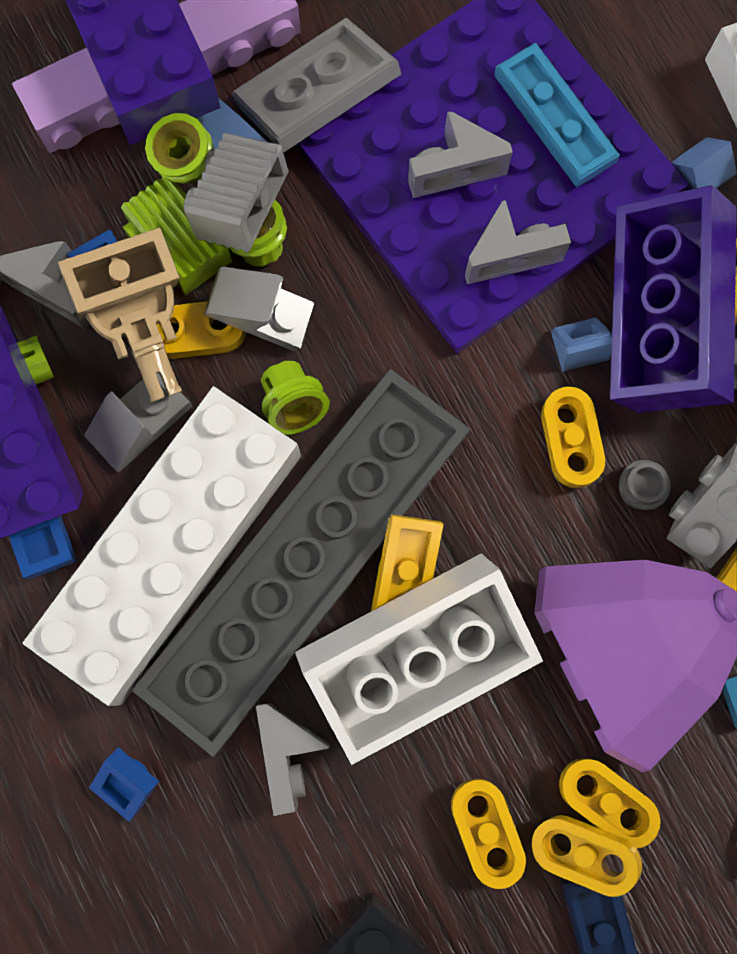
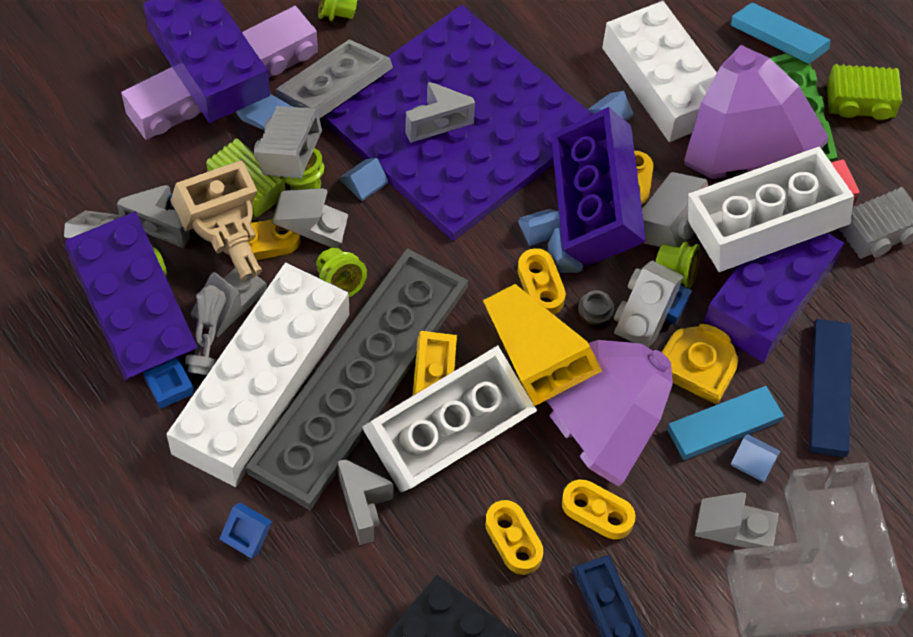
camera: 10 degrees left, 20 degrees down
(101, 444) = (210, 304): none -> light grey piece
(168, 148) = (245, 120): lime piece -> none
(344, 245) = (365, 178): none -> medium blue slope
(504, 253) = (481, 166): light grey slope -> none
(556, 115) = (503, 84): dark azure tile -> none
(557, 568) = (540, 345): none -> yellow slope
(587, 858) = (587, 541): yellow plate -> none
(599, 391) = (562, 260): none -> medium blue slope

